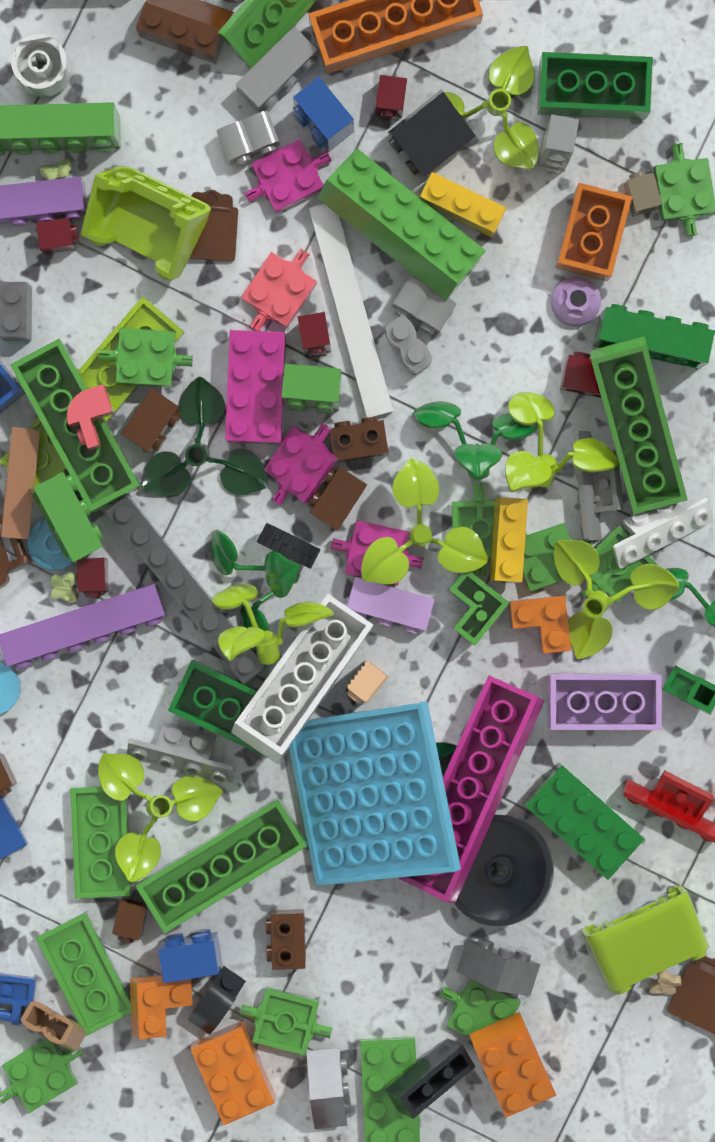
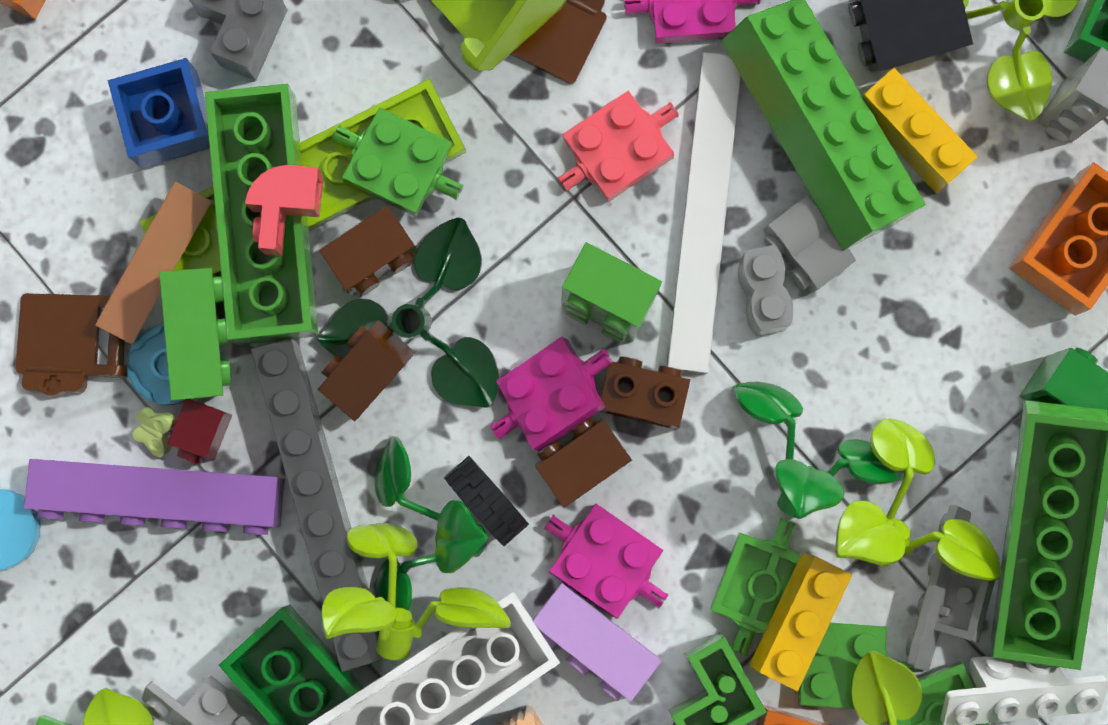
camera: 25 degrees right, 5 degrees down
(181, 495) = (365, 370): none -> reddish brown brick
(255, 387) = (530, 263): dark pink brick -> none
(314, 335) = (642, 223): dark red brick -> none
(459, 553) = (728, 607): lime plant -> none
(569, 313) = (1001, 328): lavender piece -> none
(579, 375) = (991, 431): dark red brick -> none

